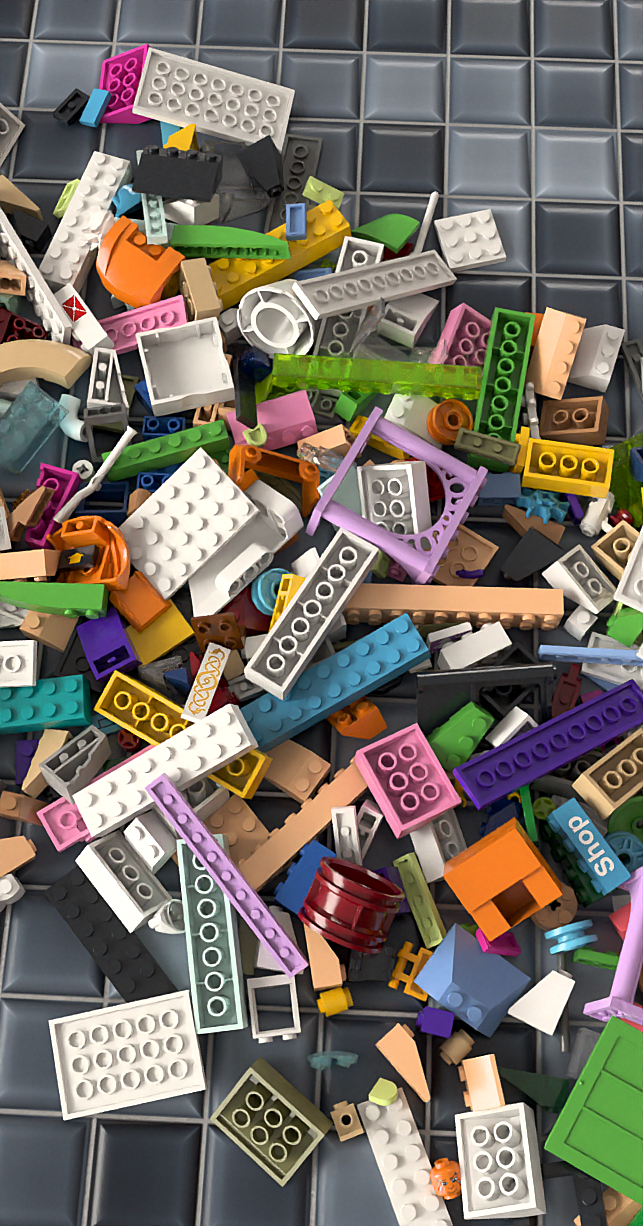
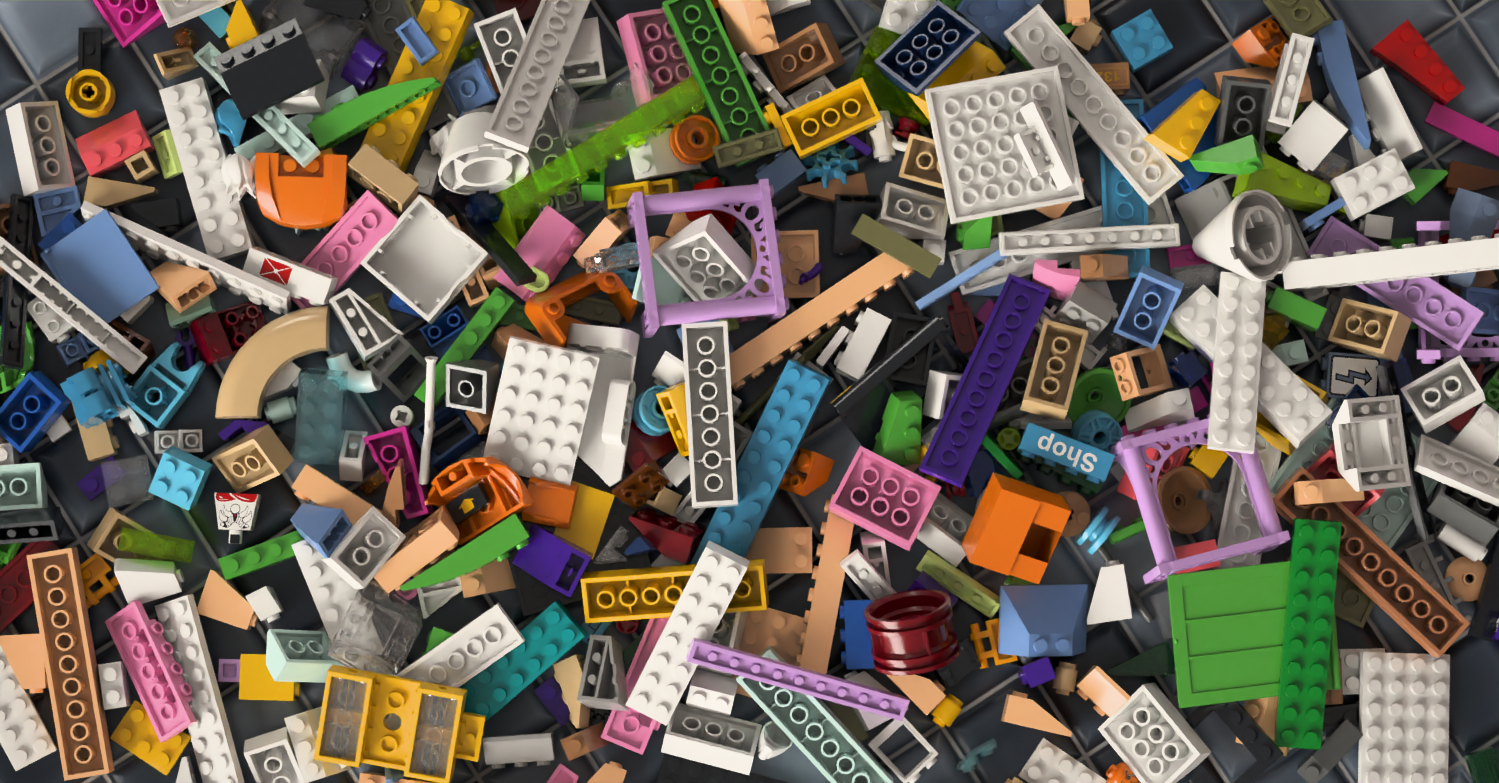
camera: 30 degrees left, 15 degrees up
(22, 475) = (353, 456): none -> white slope
(37, 173) = (113, 143): none -> coral slope
(43, 192) = (142, 166): none -> tan brick
(48, 129) = (84, 83): none -> yellow brick
(95, 107) = (115, 36): dark azure tile -> none
(120, 145) = (175, 62): none -> tan slope
(139, 139) = (184, 38): none -> clear orange piece
(146, 472) = (471, 384): none -> dark grey slope
(205, 683) = (665, 537): white tile -> none
(251, 219) = (364, 64): none -> dark purple brick
(383, 1093) = (1032, 752): yellowish green tile -> none
(473, 819) = (956, 491): none -> dark red wheel
(502, 945) = (1052, 573): dark pink tile -> none
(555, 590) = (896, 246): none -> olive tile

